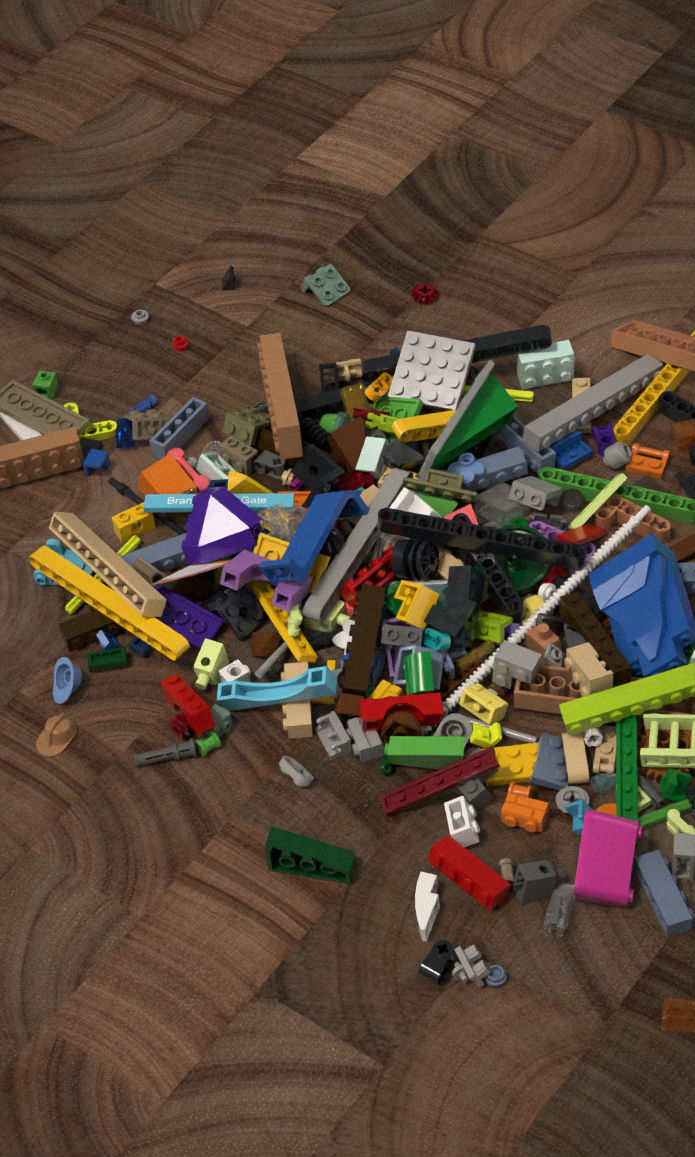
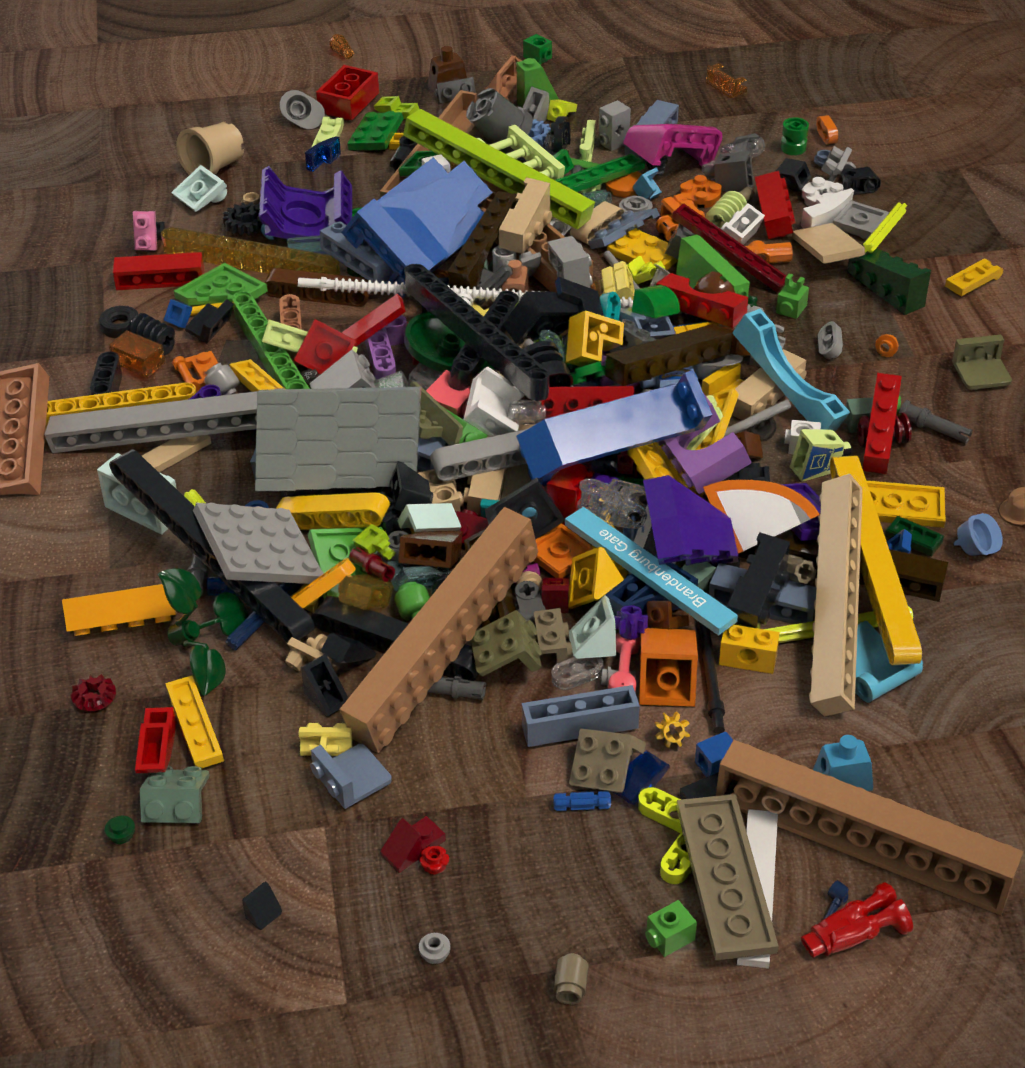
camera: 140 degrees left, 5 degrees down
(26, 494) = (846, 762): none -> dark azure torso
(69, 341) = (570, 978): none -> dark tan brick
(130, 458) = (664, 729): none -> yellow gear
(139, 679) = (912, 502): none -> yellow tile
(149, 535) = (761, 582): none -> black wedge
(174, 826) = (980, 362): none -> olive bracket
(197, 343) = (408, 842): none -> dark red slope
(201, 478) = (631, 622): none -> dark purple gear
(252, 330) = (350, 774): none -> sand blue bracket
(253, 919) = (973, 277): none -> yellow plate
(254, 797) = (891, 341): none -> orange plate
(266, 476) = (555, 593): none -> dark red slope
(292, 341) = (333, 739): none -> light yellow hips
(321, 357) = (323, 685): none -> black slope
(328, 260) = (120, 829): none -> dark green plate
(357, 788) = (792, 297): none -> bright green brick
(358, 907) = (884, 227): none -> neon yellow axle
(359, 312) = (194, 722): none -> yellow plate
(360, 291) = (156, 740): none -> red slope
(384, 856) = (828, 243): none -> tan tile
(393, 918) = (859, 219): none -> light grey plate
(413, 308) = (182, 592): none -> dark green plant
(426, 818) = (769, 252): none -> orange piece
(458, 920) = (819, 188): none -> white plate
(476, 319) = (116, 608): none -> light orange slope
(490, 918) = (795, 173): none -> black brick
(496, 839) = (726, 208): none -> yellowish green piece
(529, 1013) = (827, 129): none -> orange beam
(540, 972) = (794, 136): none -> green wheel
(547, 846) = (701, 191): none -> orange plate
(574, 511) = (323, 347): none -> red plate
(591, 467) = (253, 376): none -> yellow plate

